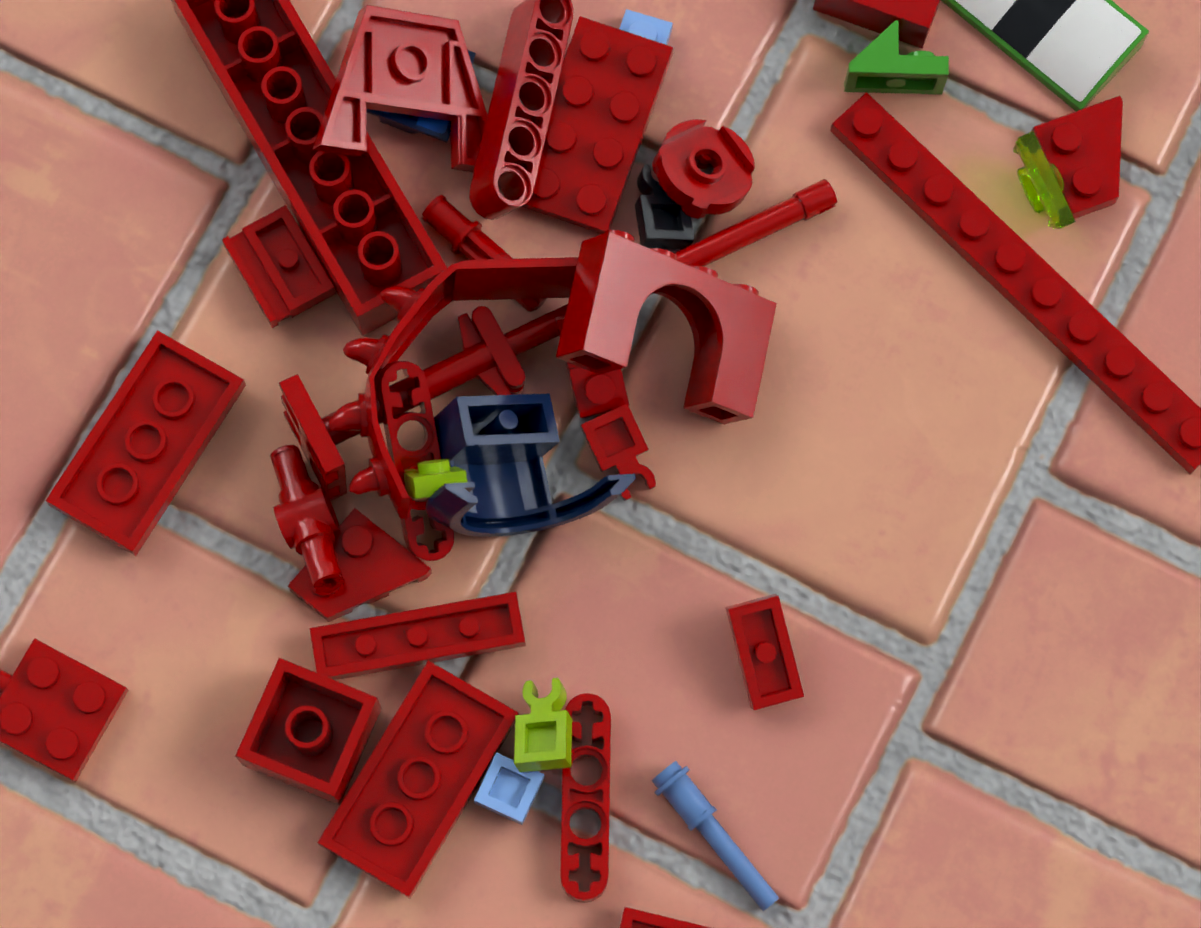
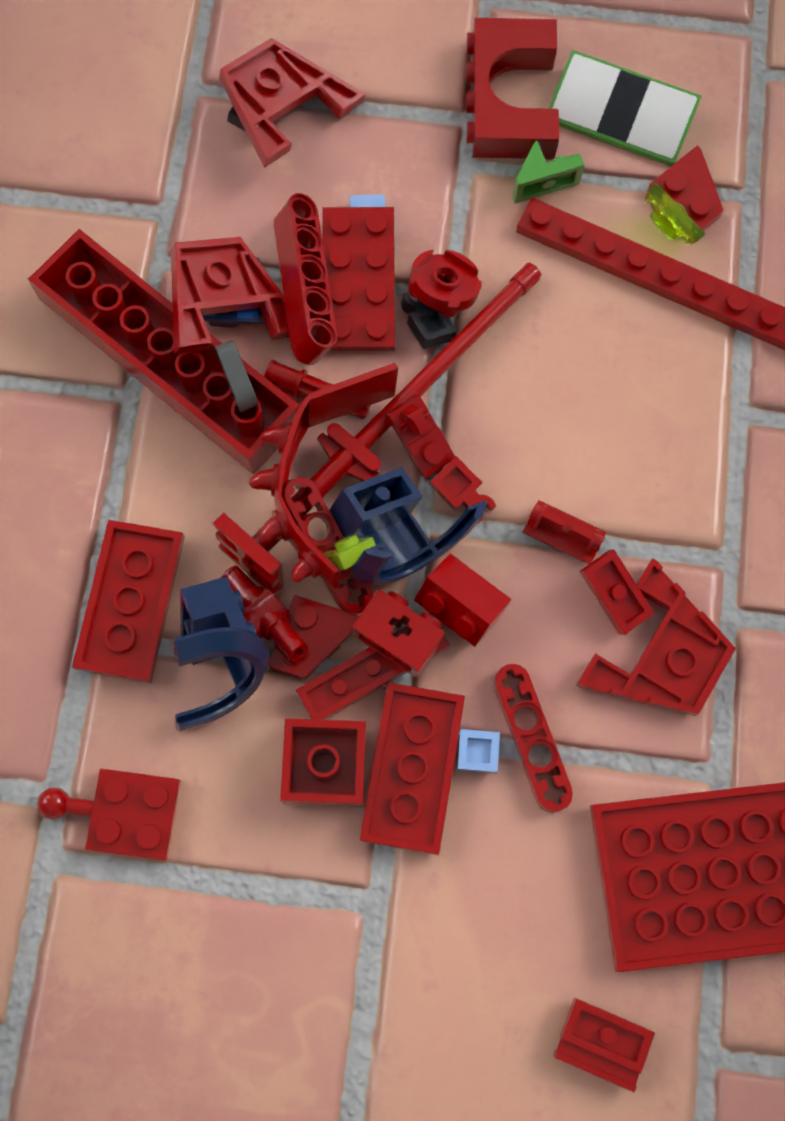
camera: 20 degrees left, 0 degrees up
(236, 519) = (215, 628): none -> dark blue piece
(279, 266) = (177, 446): red plate -> none
(379, 205) = (236, 376): none -> dark grey beam
(471, 632) = (408, 652): none -> red brick
(545, 734) = (490, 703): lime plate -> none
(561, 590) = (462, 599): none -> red brick
(697, 813) = (615, 720): medium blue pin -> none
(726, 320) = (502, 376): red arch -> none
(731, 550) = (564, 532): none -> red hinge
(812, 767) = (678, 662): none -> red wing

